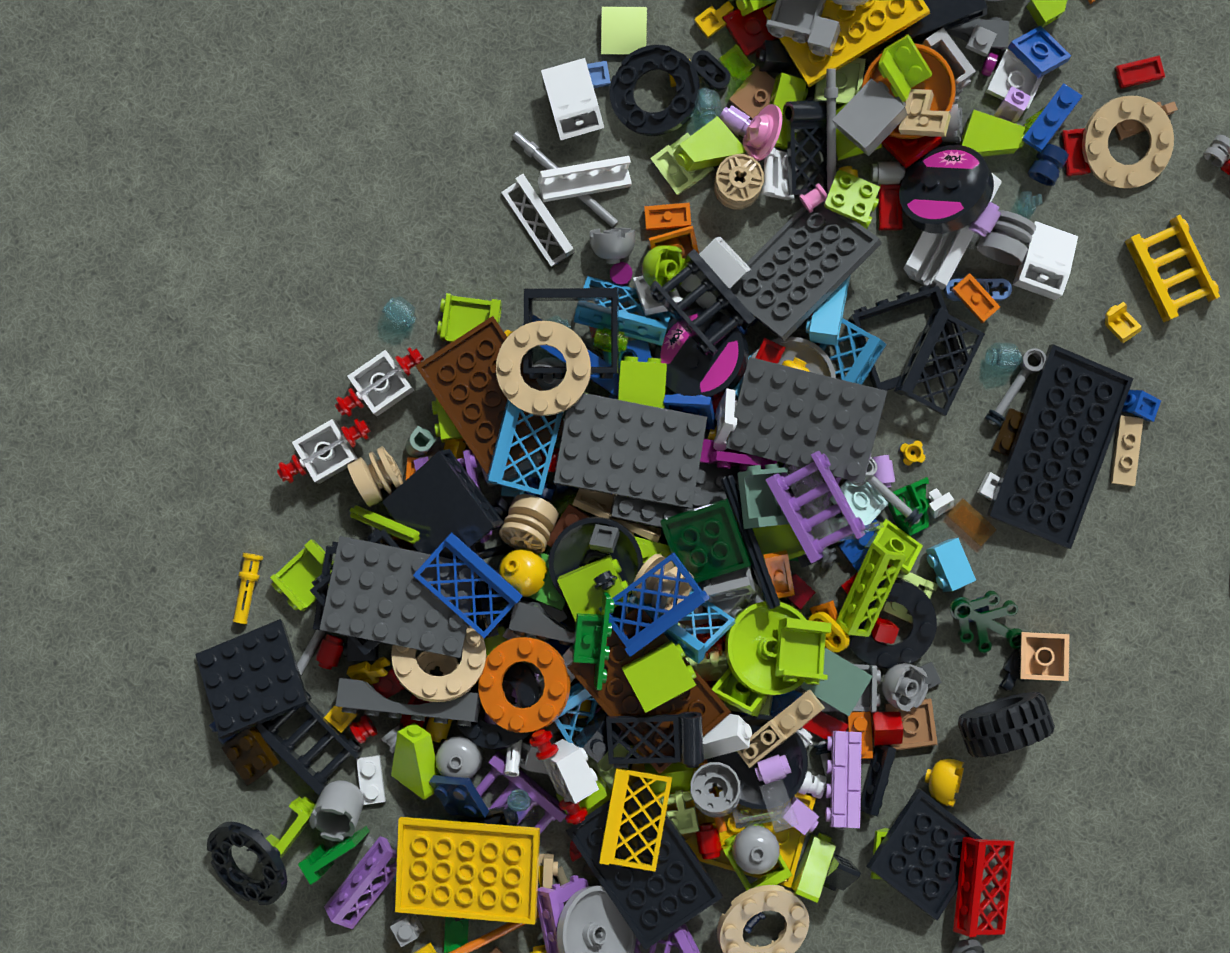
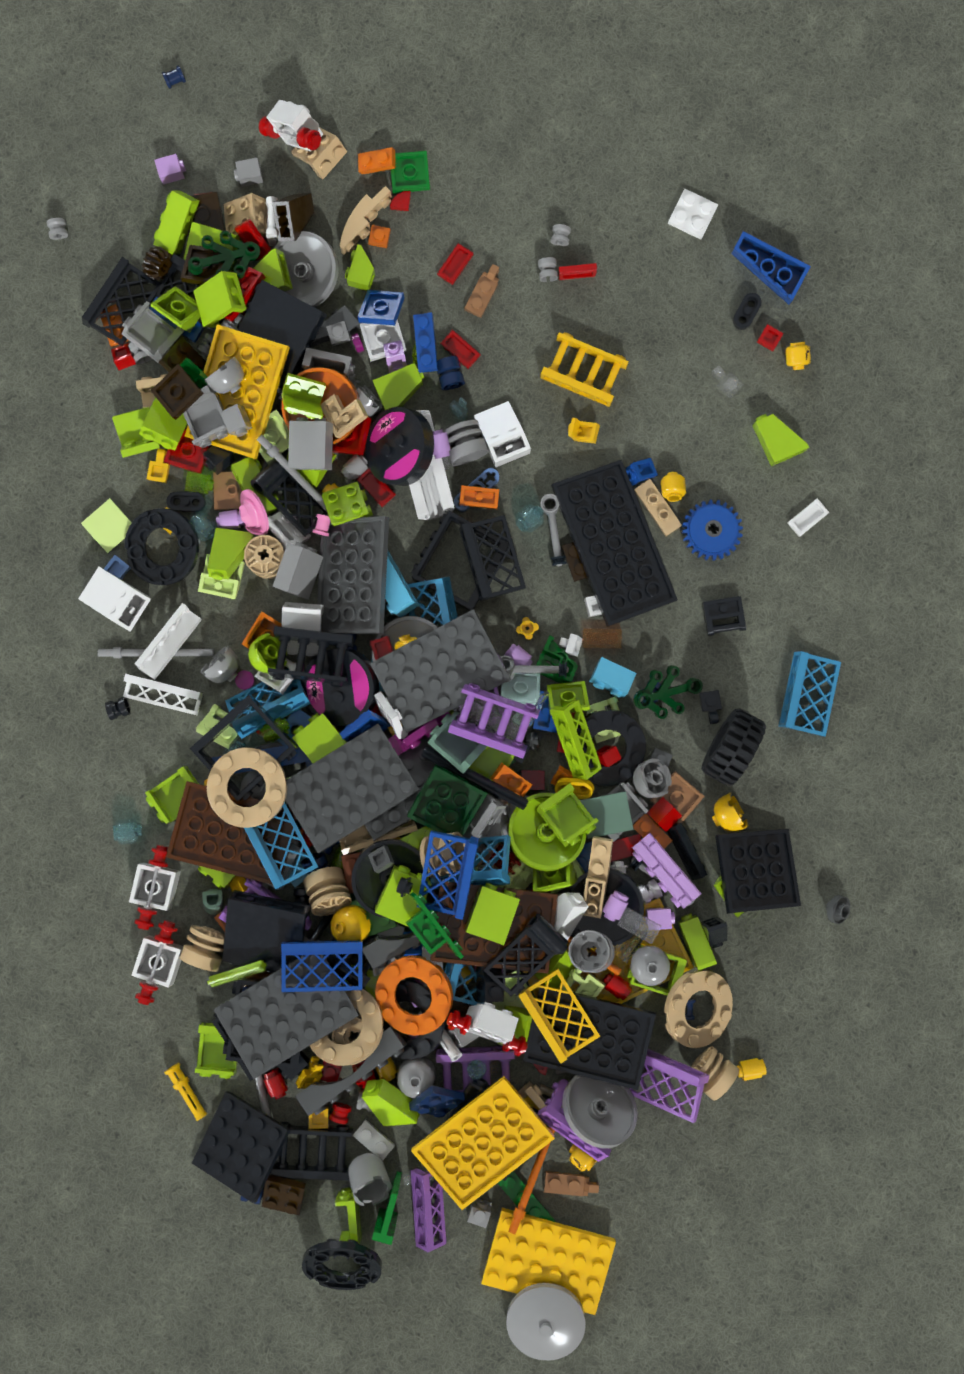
camera: 40 degrees left, 0 degrees up
(487, 198) = (117, 708): none -> black wheel
(561, 309) = (227, 737): none -> yellowish green plate
(667, 216) = (241, 618): orange plate -> none
(756, 218) = (298, 570): none -> light grey brick
(971, 885) = (803, 866): red fence -> none
(1044, 656) = (720, 682): light nougat slope -> none
(1096, 141) = (461, 323): tan plate -> none
(1104, 594) = (724, 609): none -> black plate
(1107, 722) = (795, 687): none -> dark azure fence
(1142, 514) = (720, 519): none -> blue gear
(1158, 444) = (673, 486): none -> yellow head

